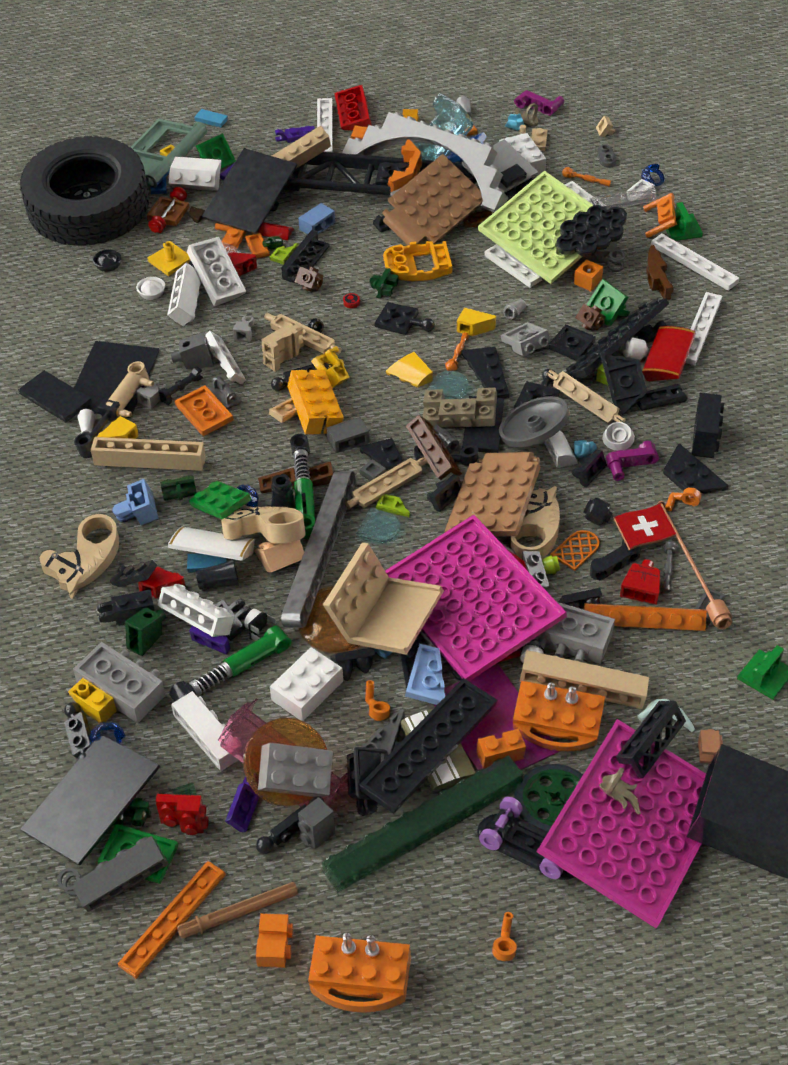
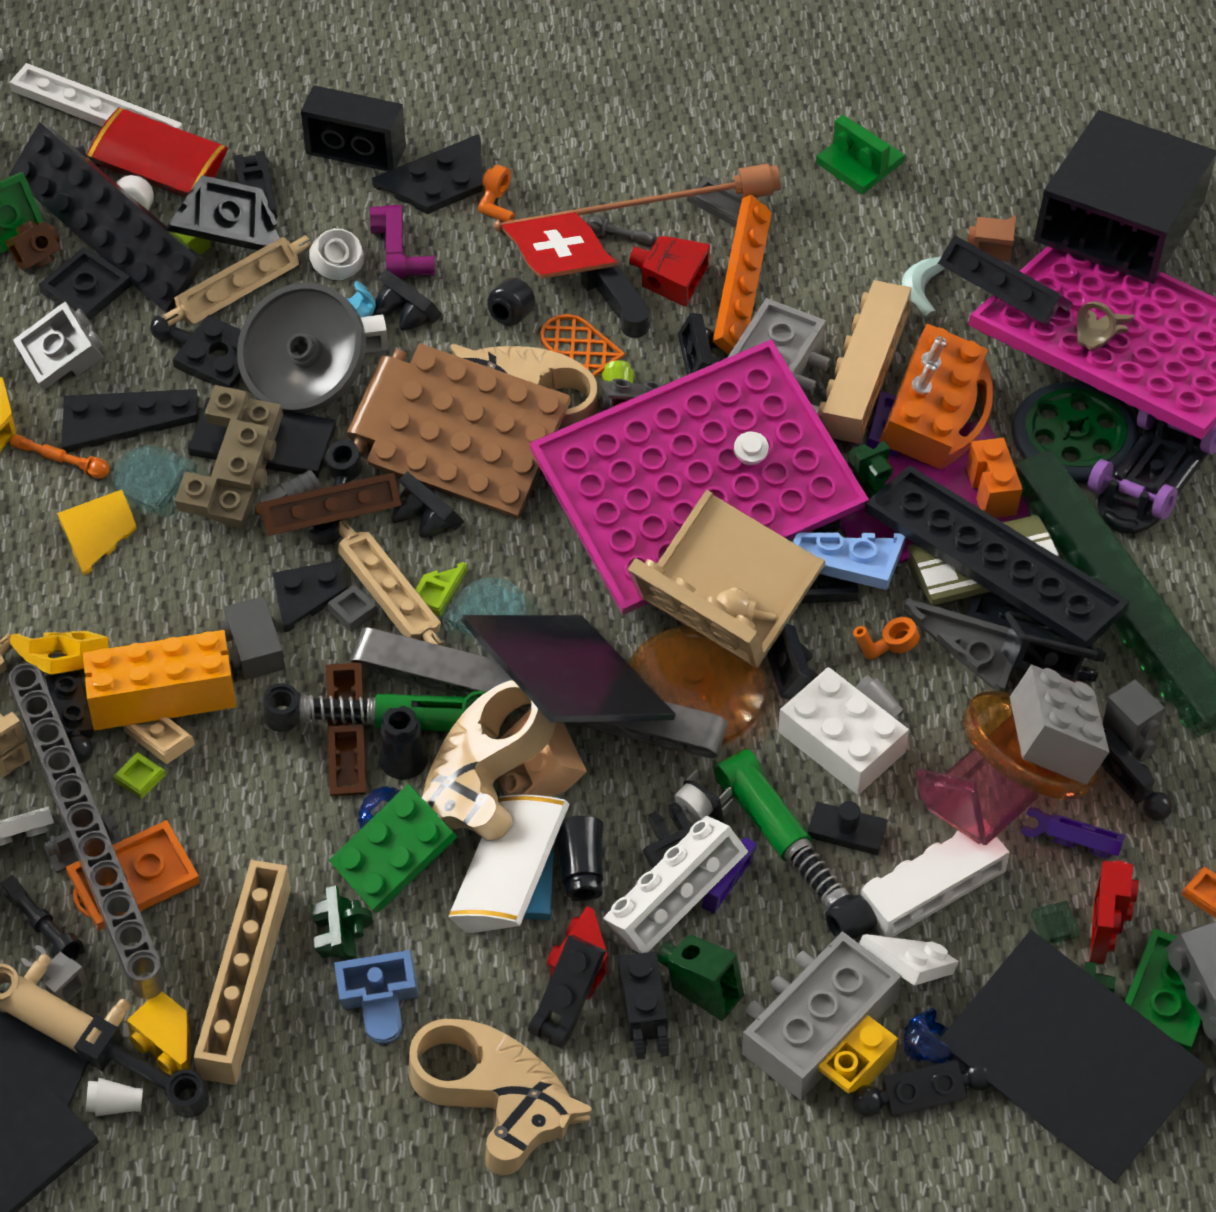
camera: 85 degrees left, 5 degrees up
(152, 720) = (911, 959): none -> white wing
(217, 382) = (89, 839): none -> flat silver beam
(246, 691) = (847, 827): none -> black tile
(263, 408) = (139, 775): none -> lime tile
(316, 543) = (567, 668): none -> black piece
(333, 700) = (880, 695): none -> light grey cone
(372, 619) = (738, 602): none -> tan piece
(485, 612) = (751, 448): none -> white plate
(491, 681) = (871, 467): none -> dark green hips

